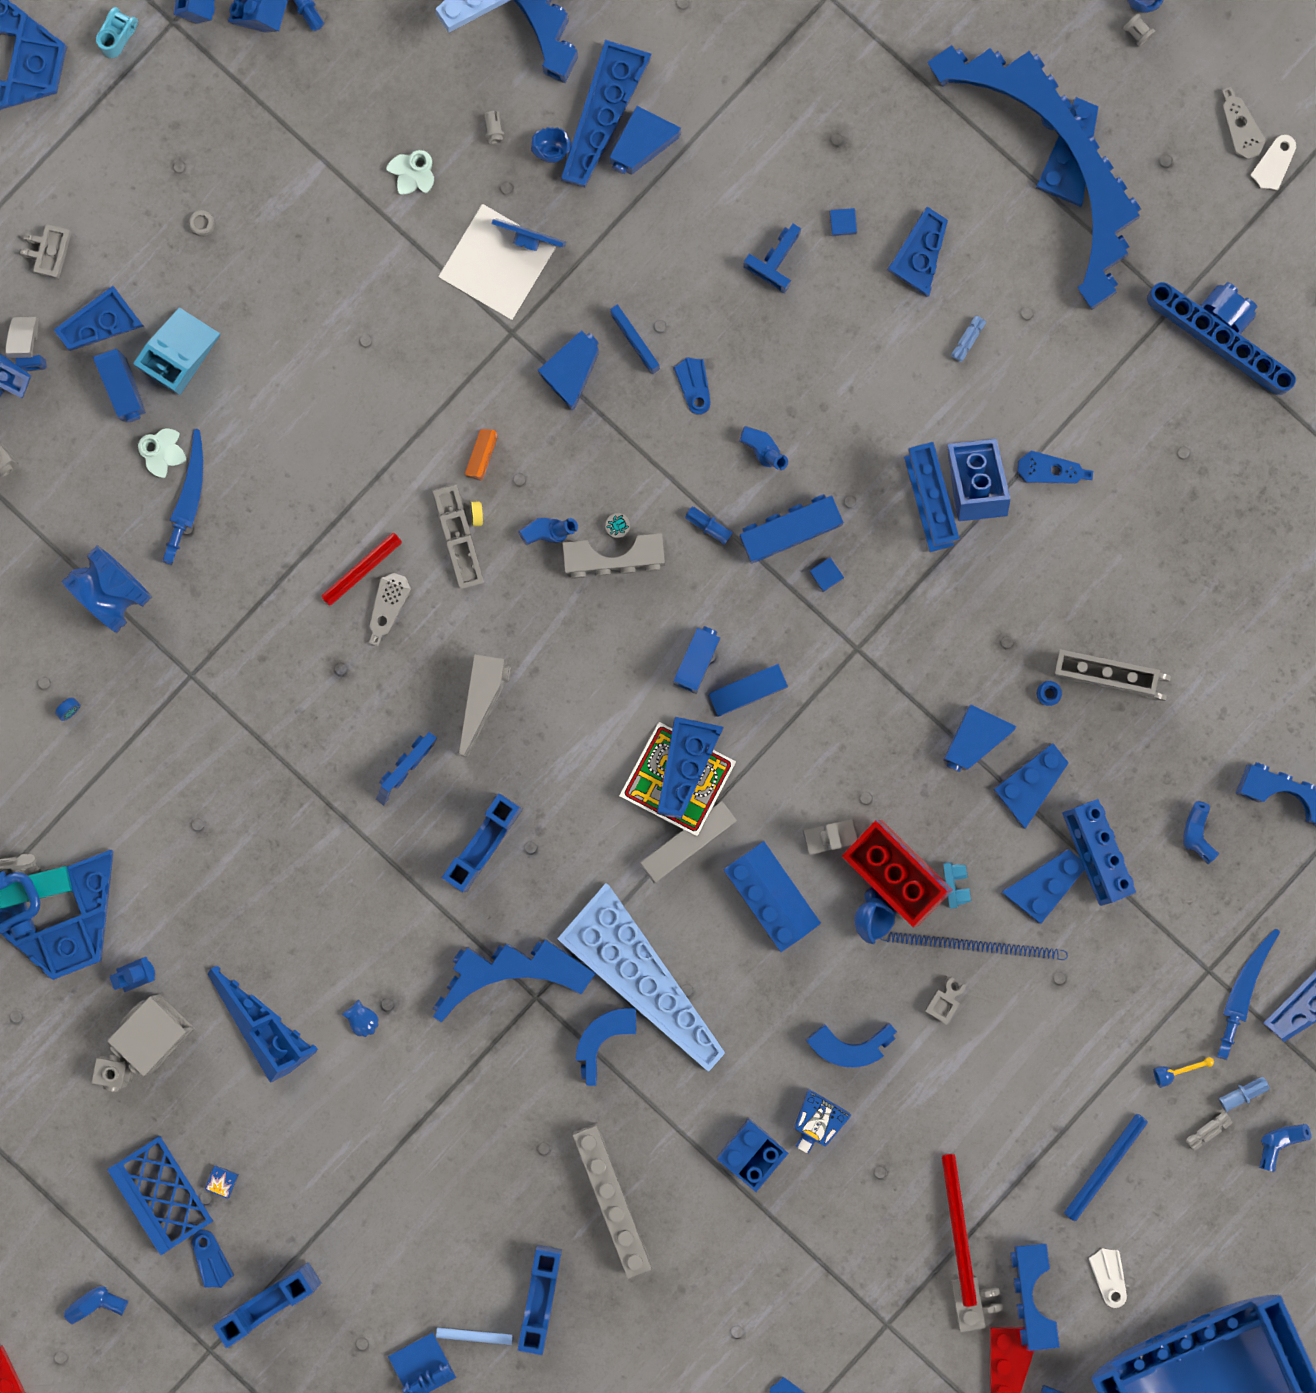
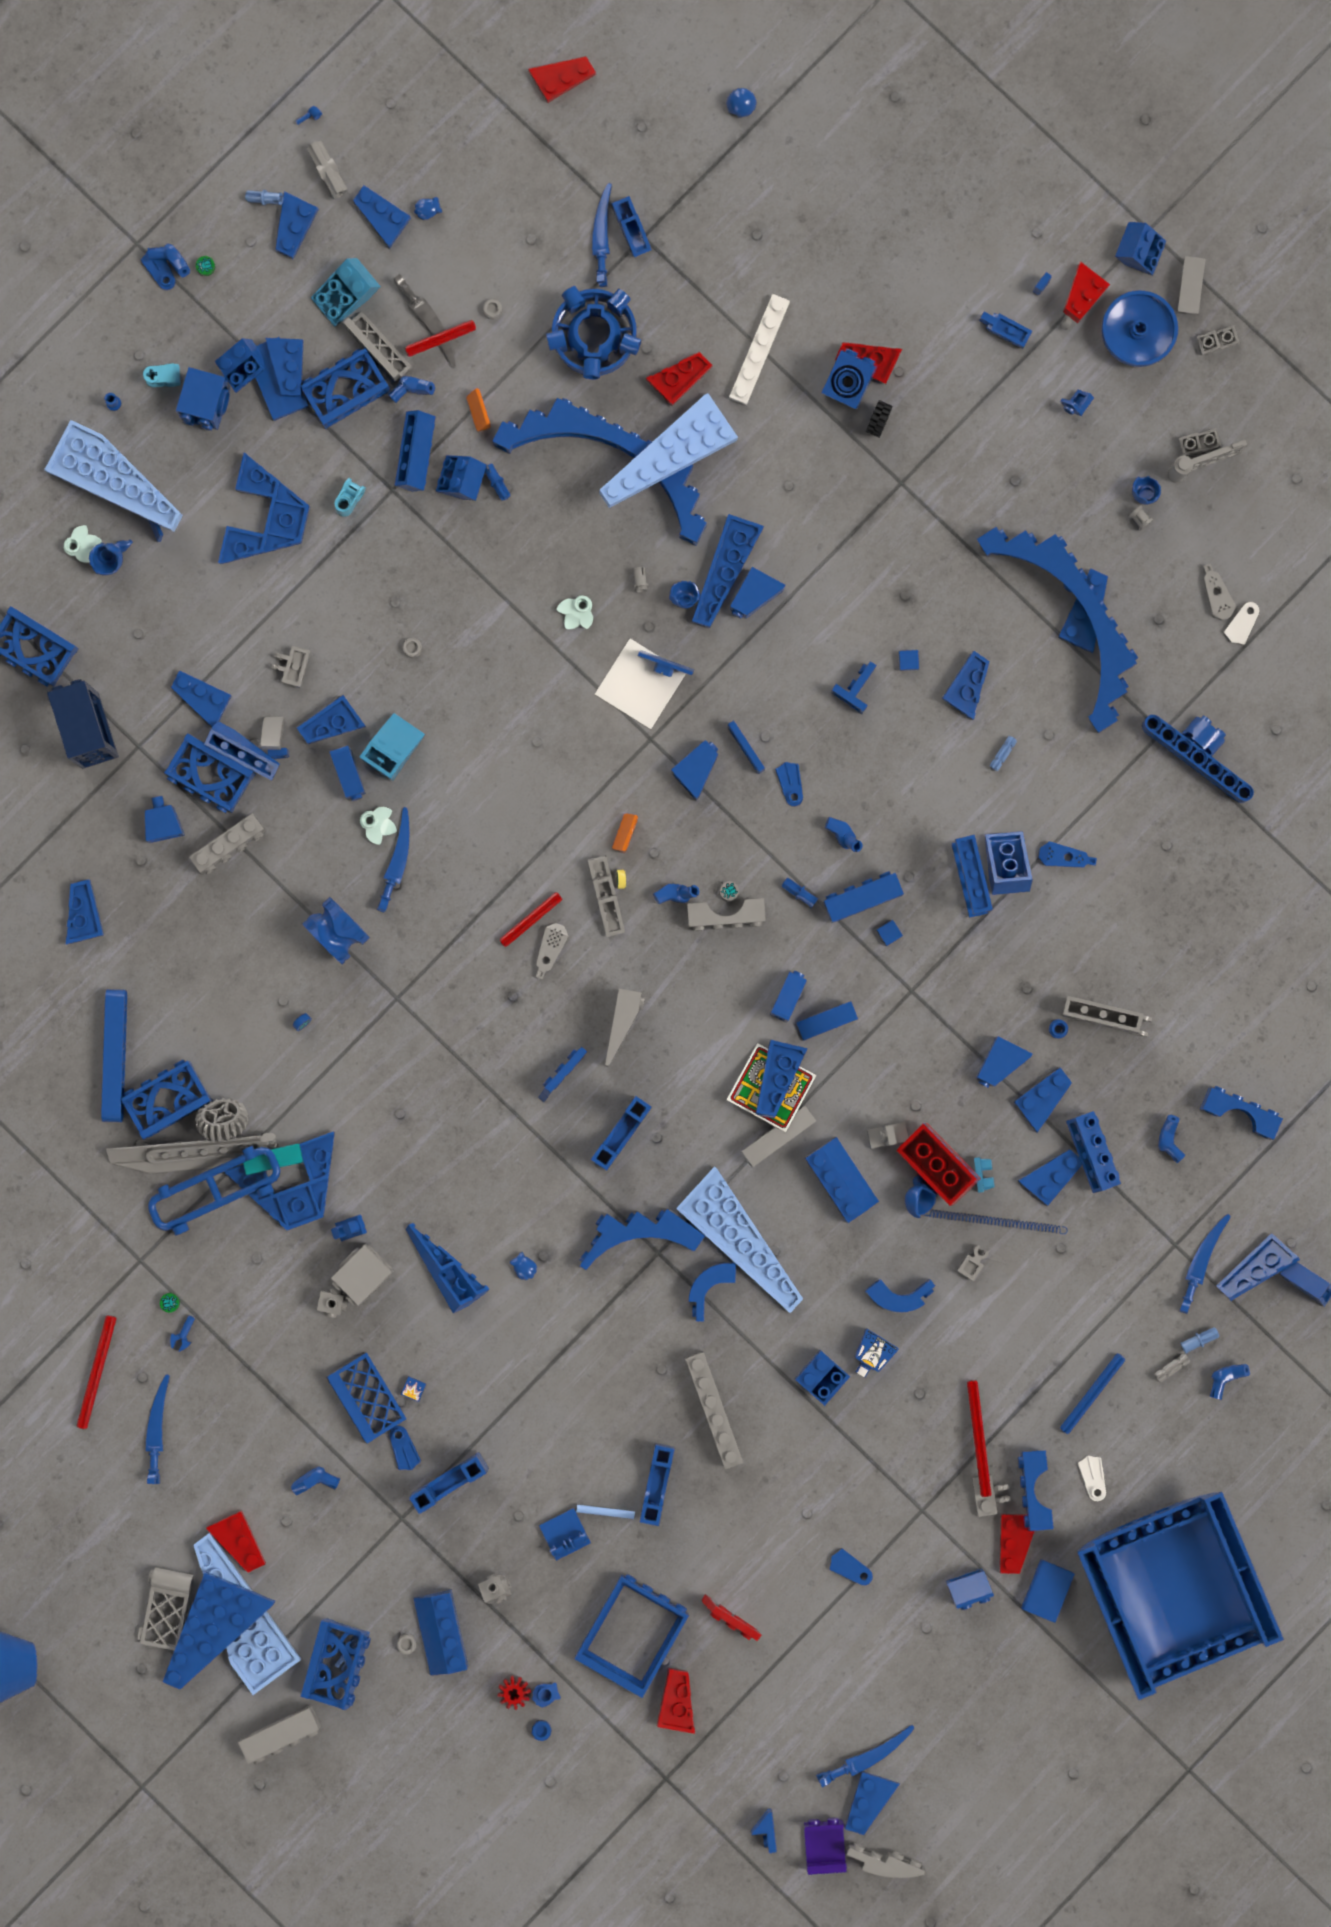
camera: 10 degrees left, 0 degrees up
(1164, 1075) = (1139, 1324): hinge -> none

